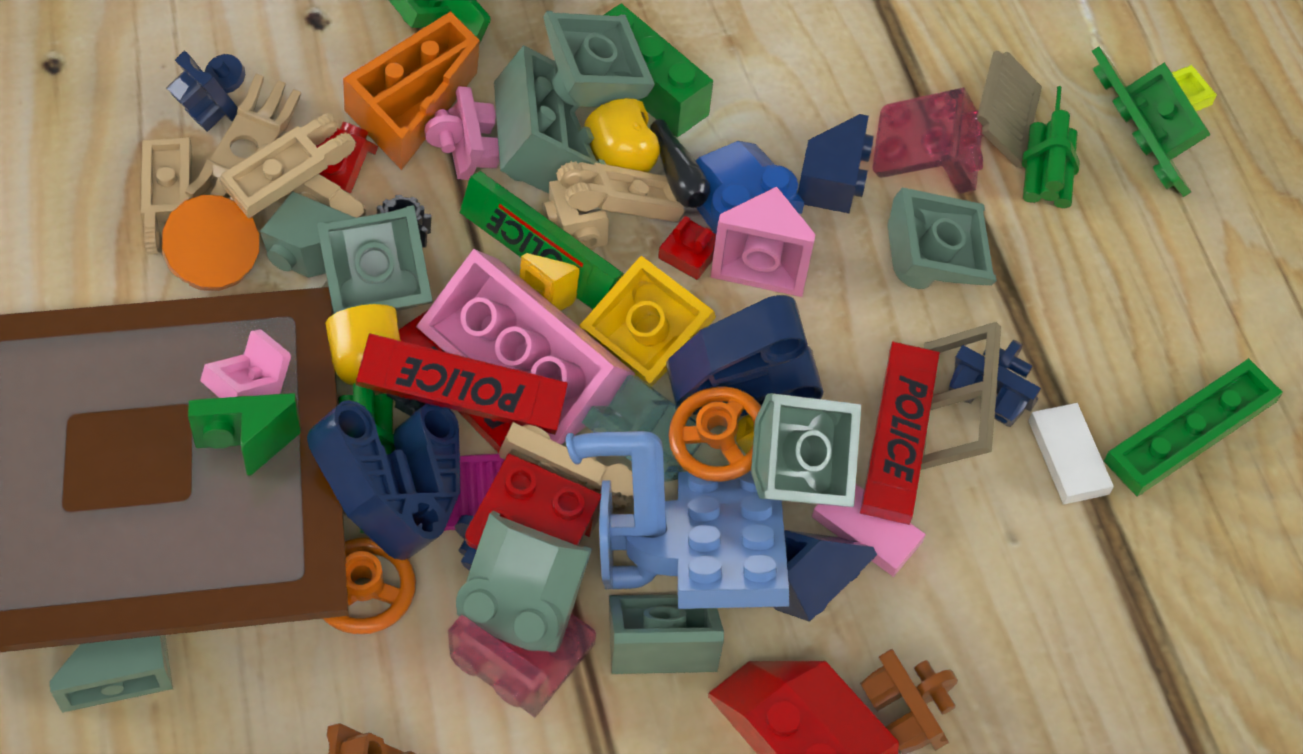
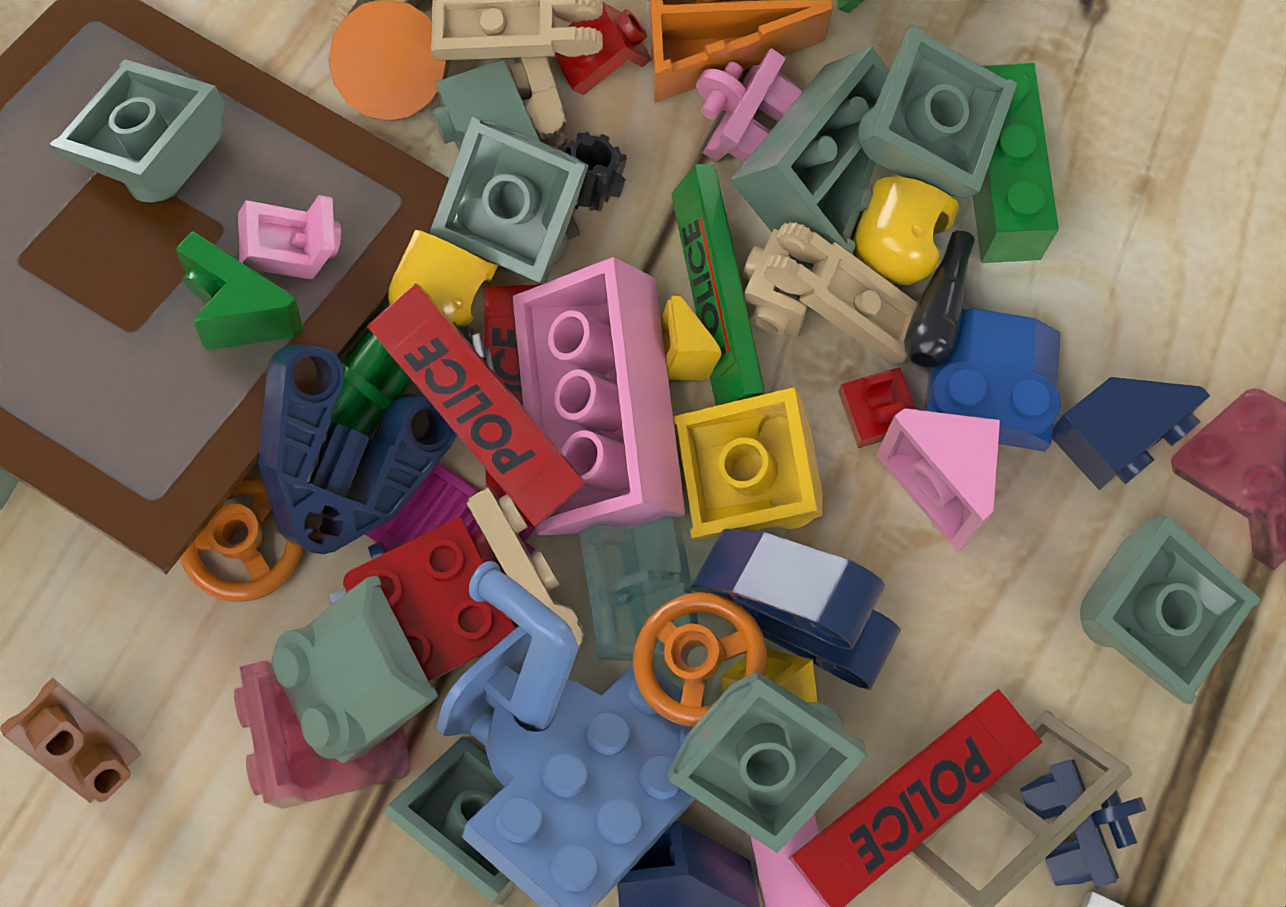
camera: 45 degrees right, 15 degrees up
(87, 372) = (145, 130): none -> sand green slope

